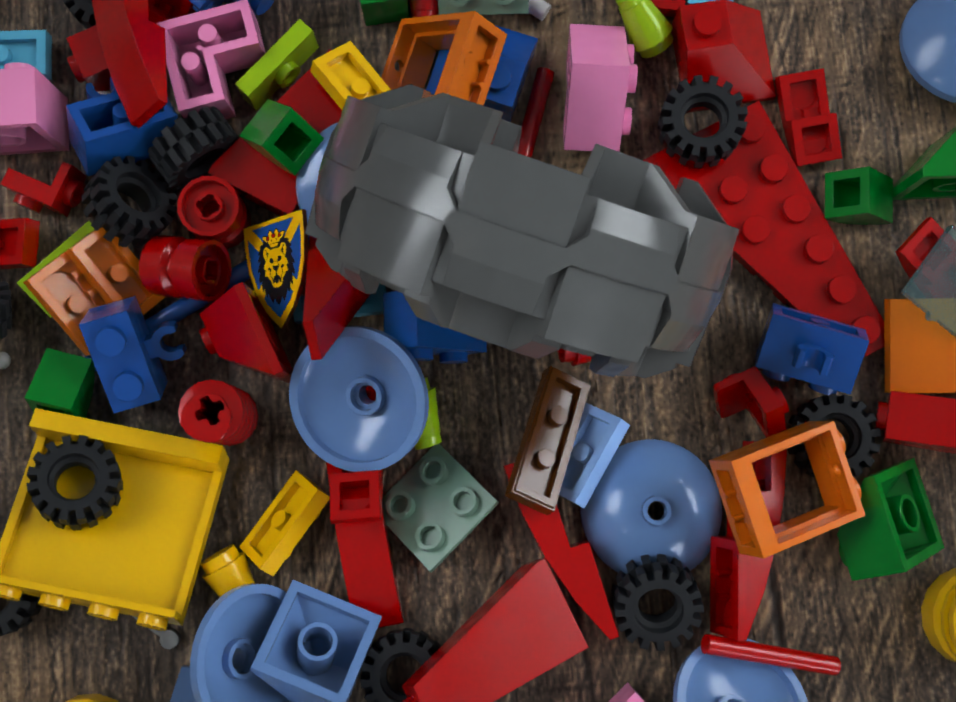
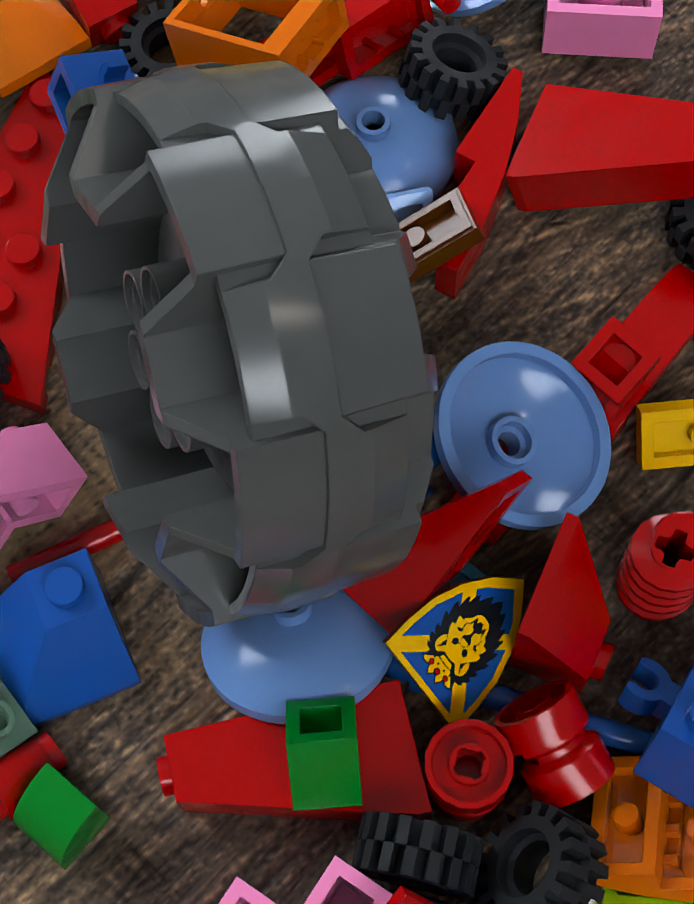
camera: 125 degrees left, 15 degrees down
(278, 65) = (240, 856): lime plate -> none
(347, 73) = (201, 710): yellow plate -> none
(435, 506) = (550, 300): sand green hinge -> none
(471, 61) = (80, 604): orange window -> none

